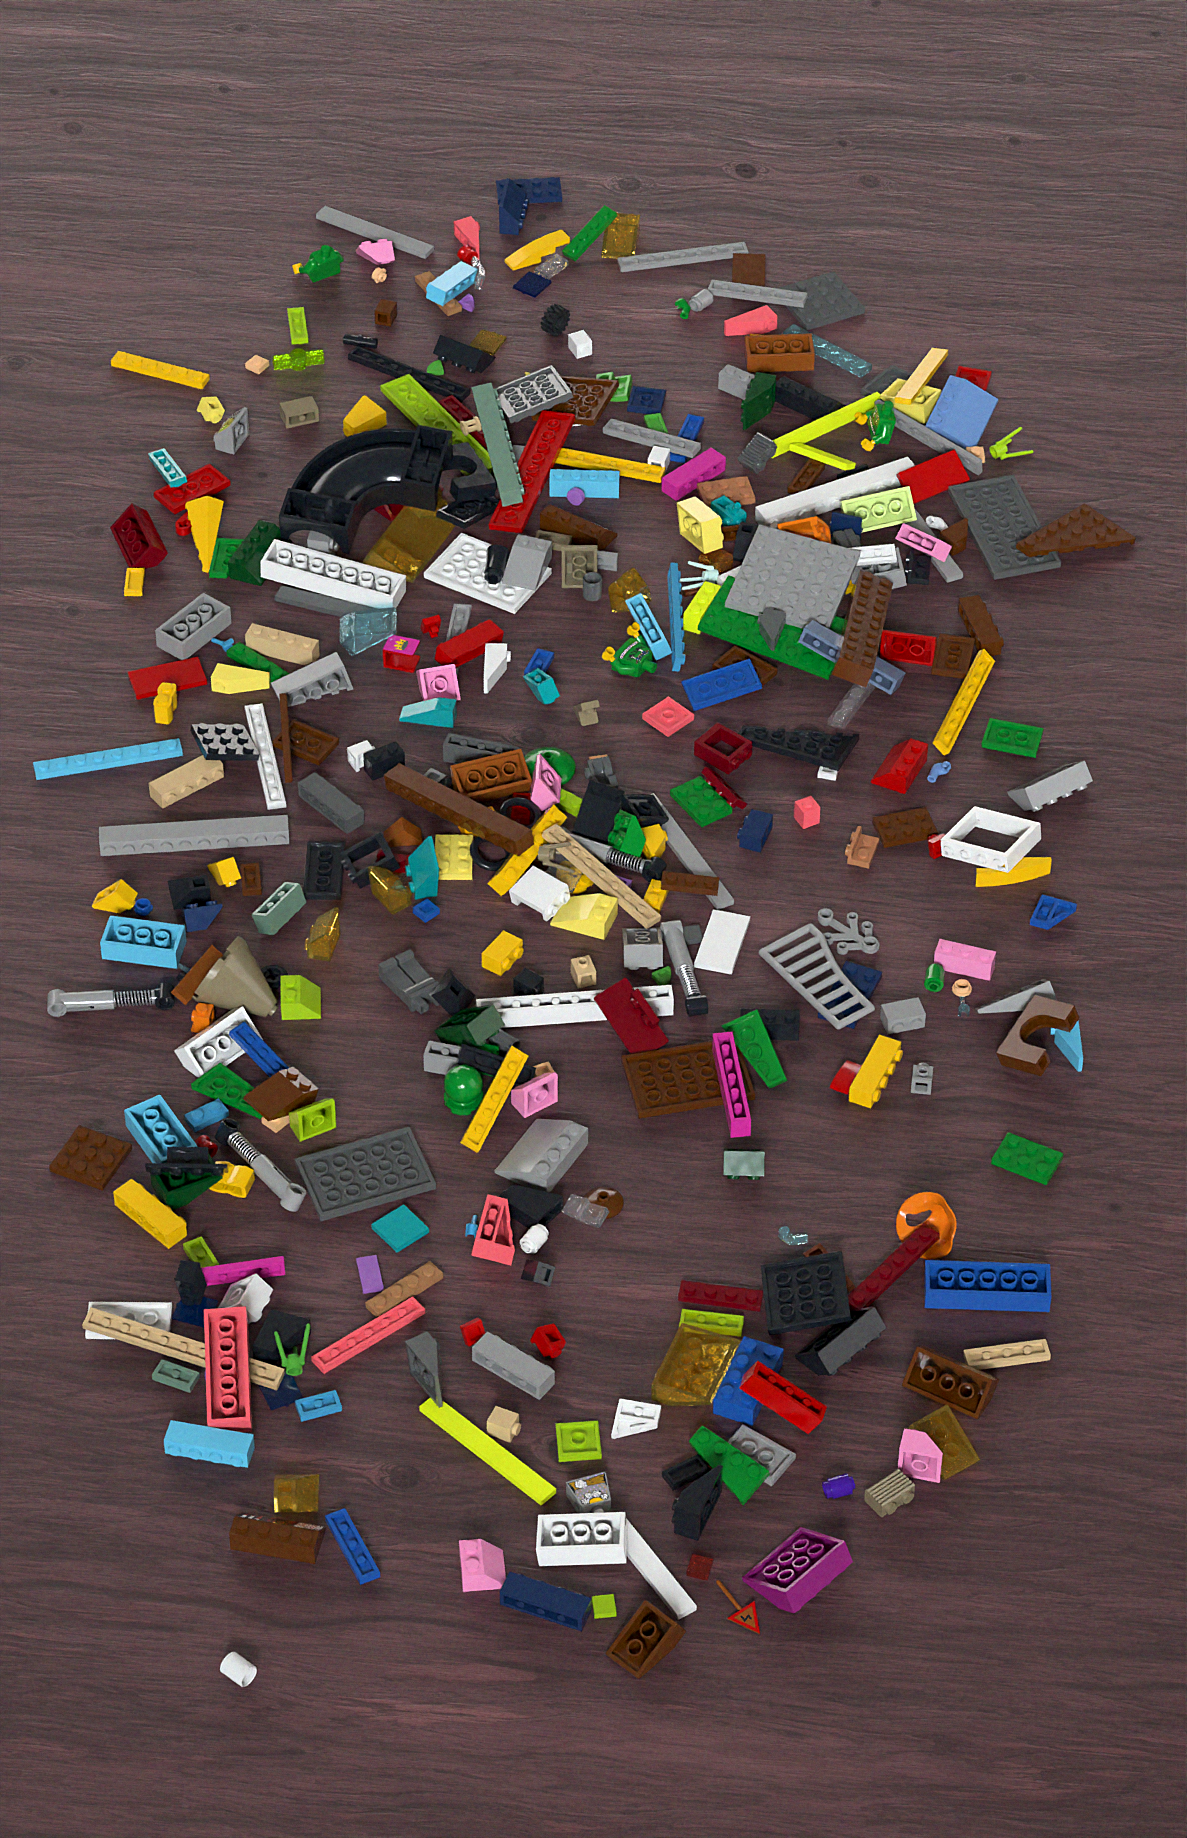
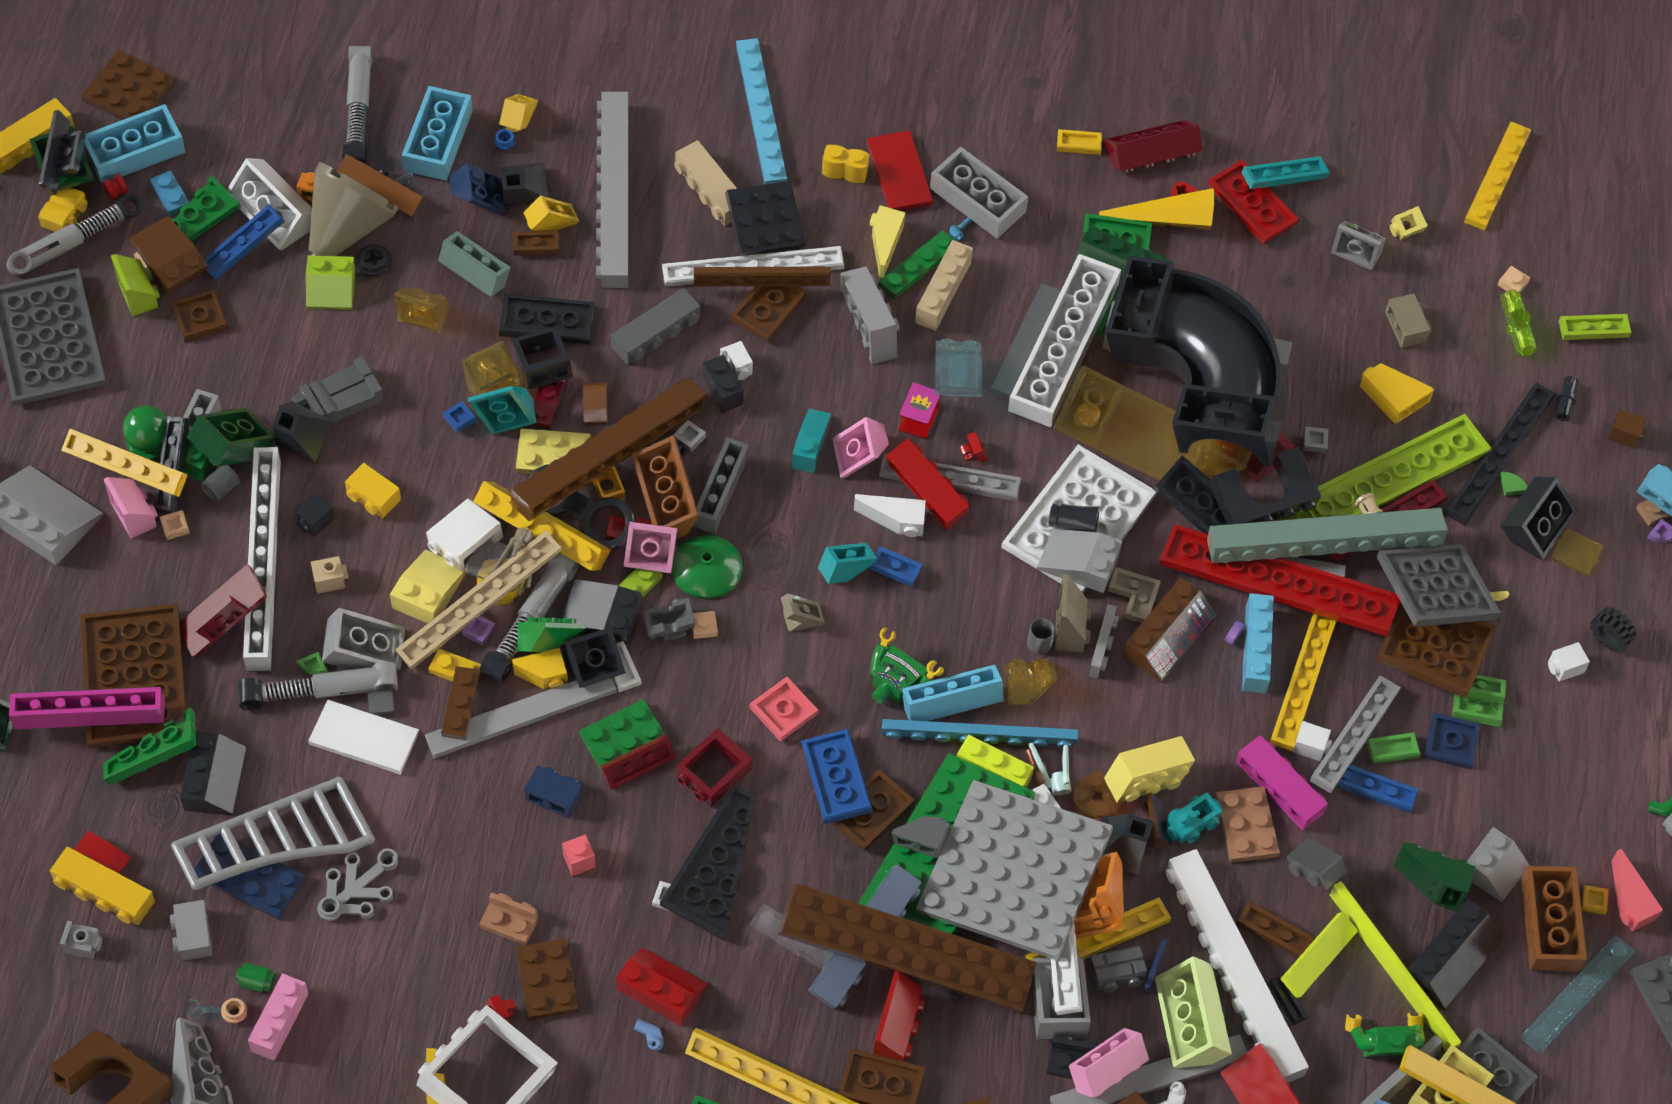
camera: 90 degrees right, 15 degrees up
(335, 1081) = (199, 315): none -> reddish brown tile

